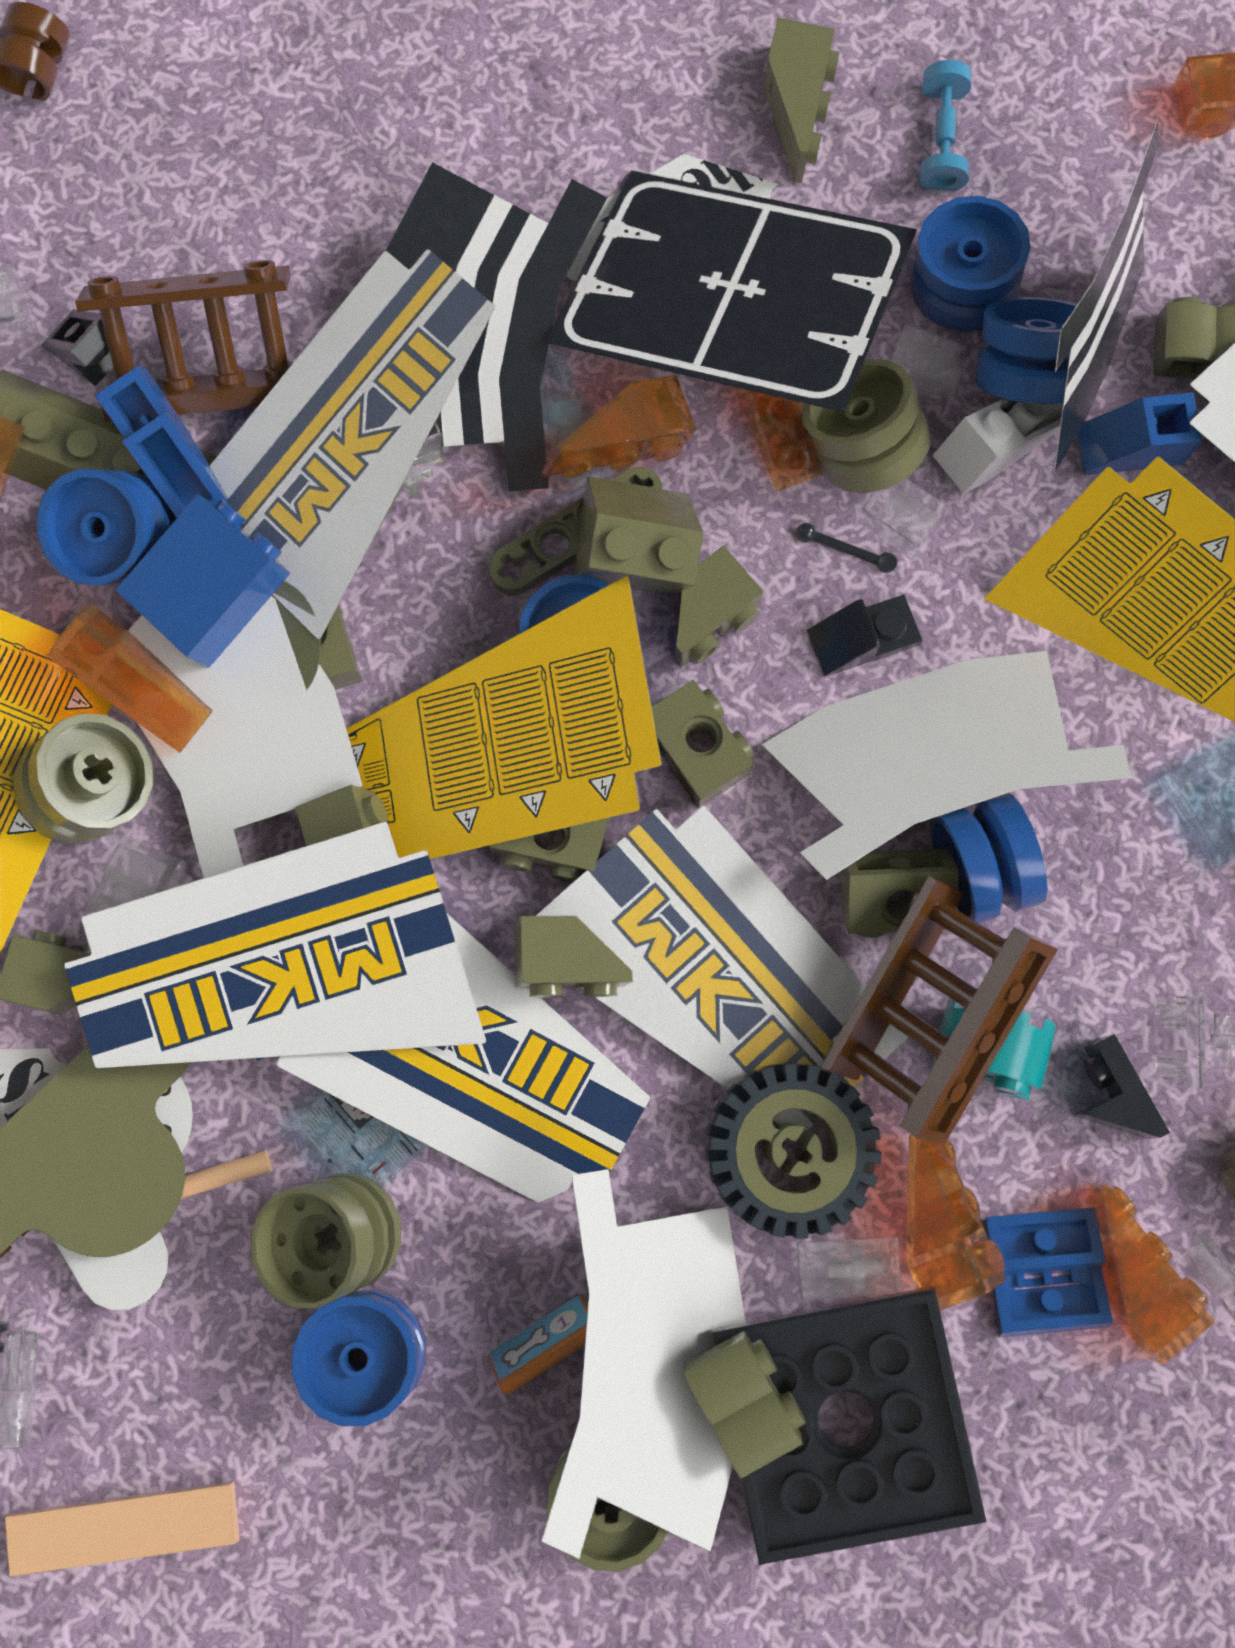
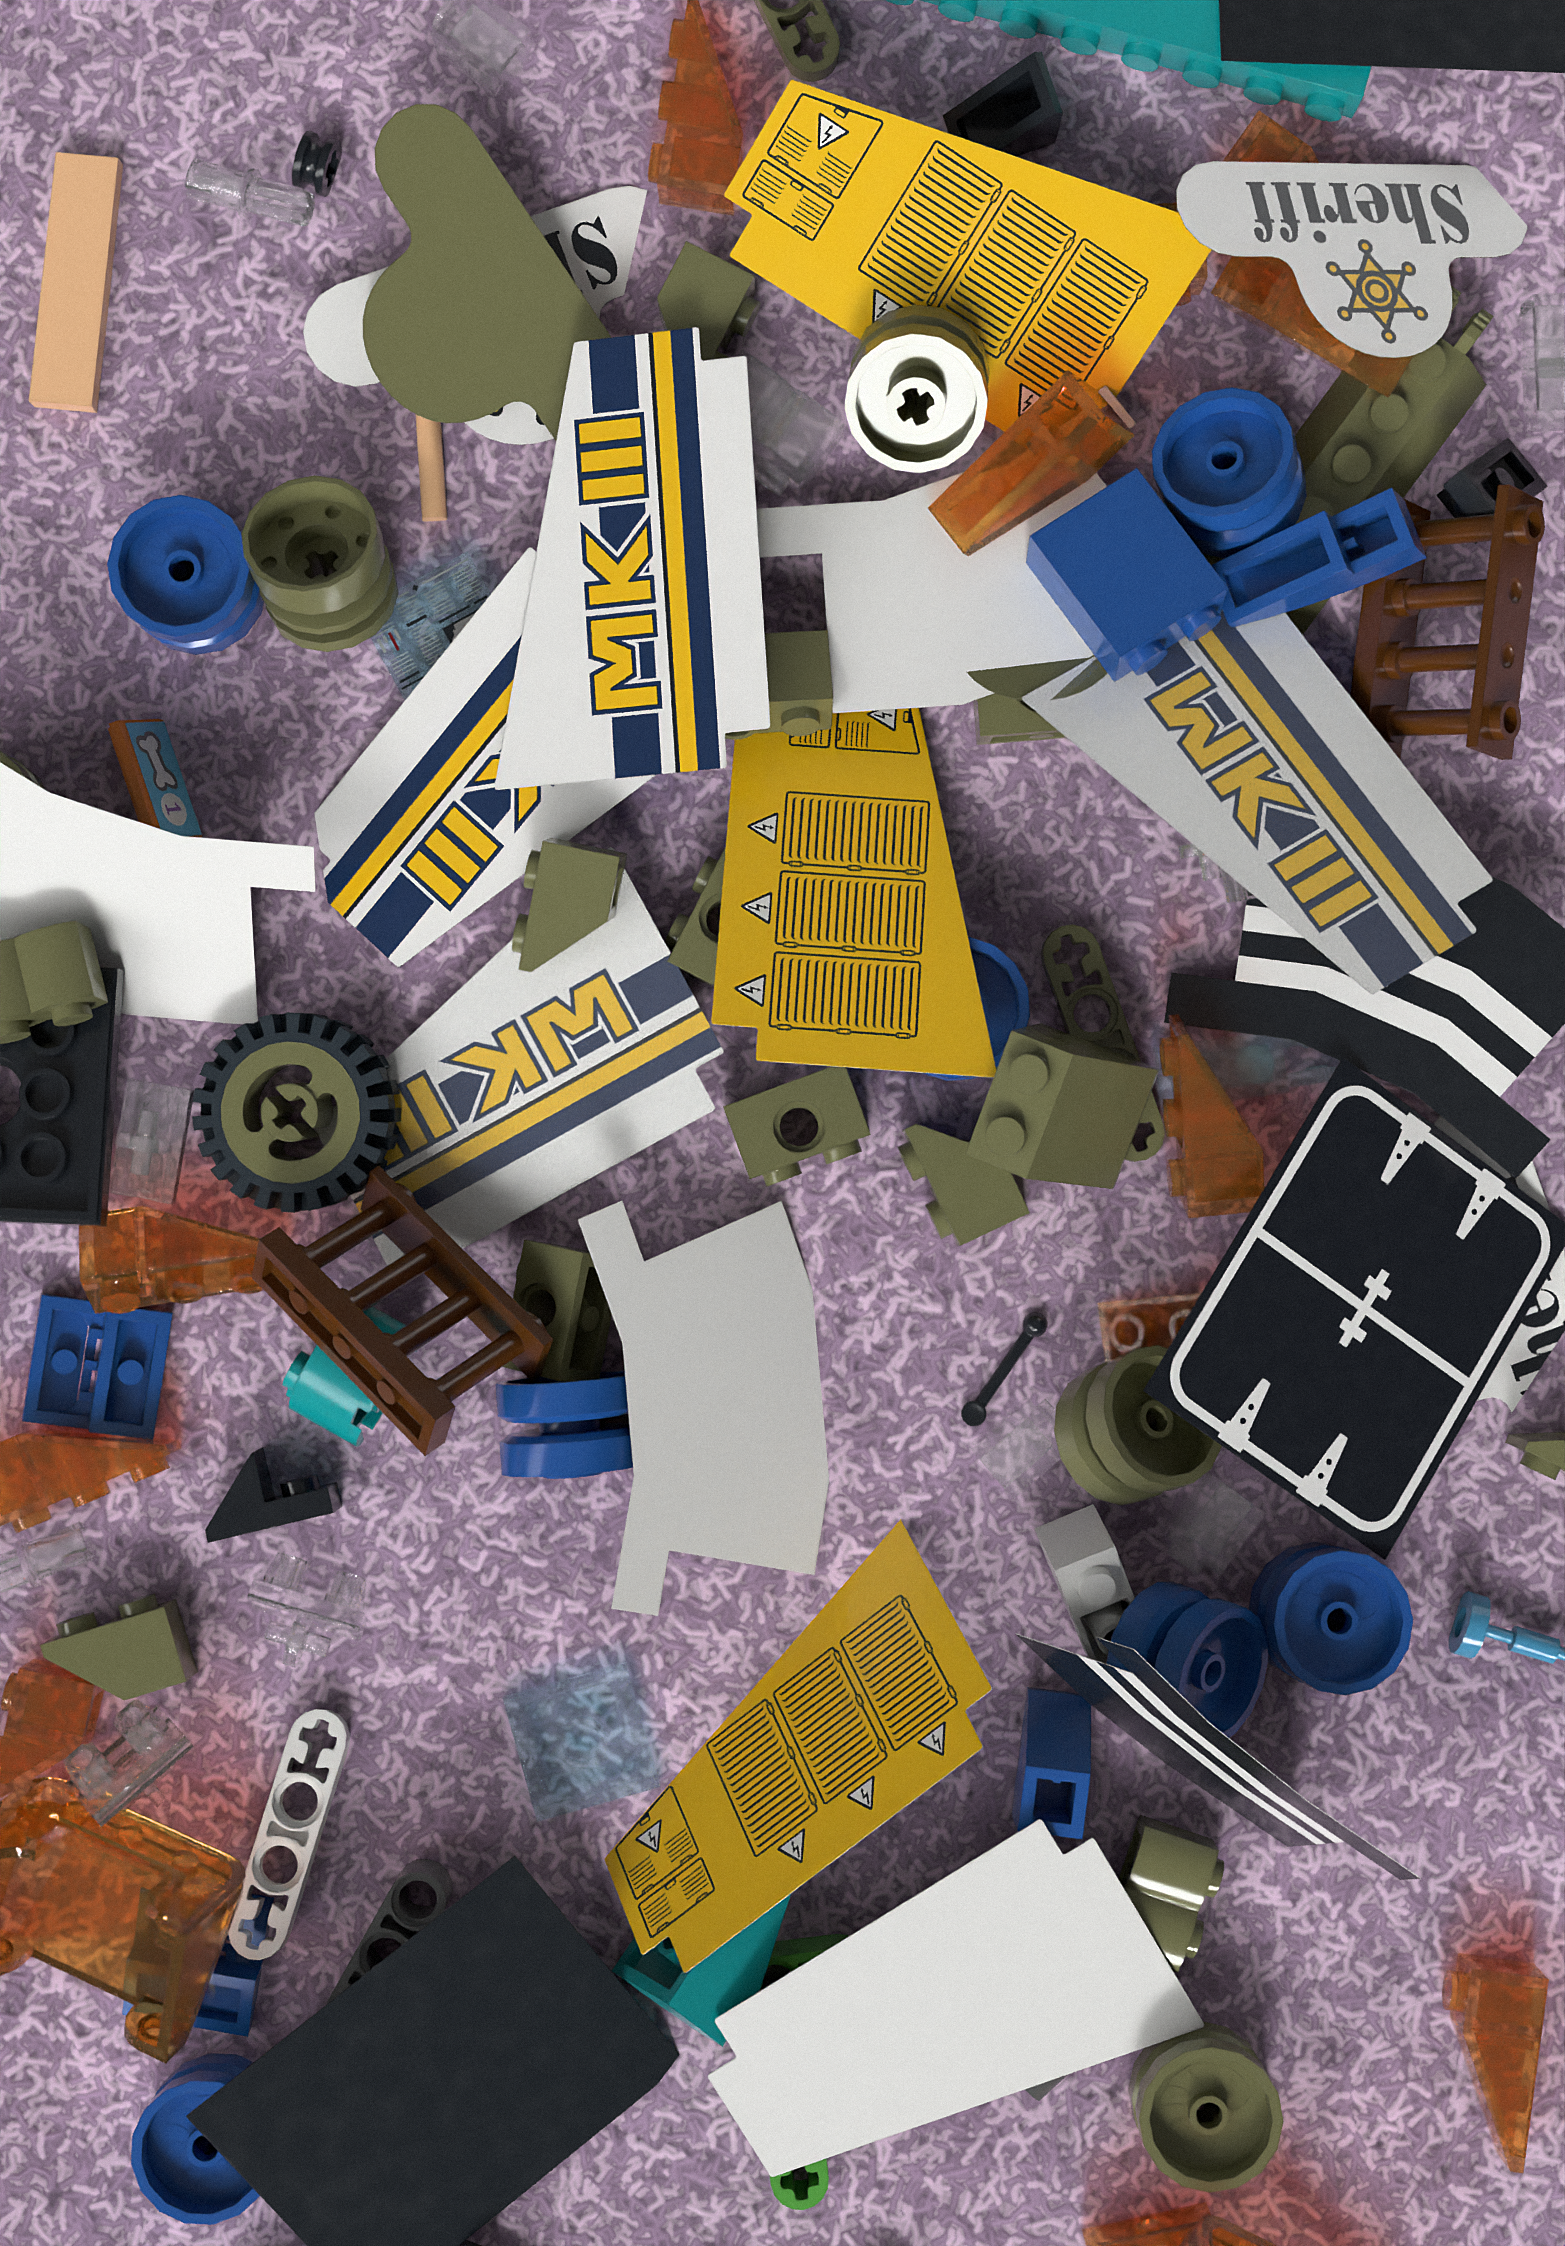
camera: 105 degrees right, 10 degrees up
(863, 634) = (887, 1360): black slope -> none

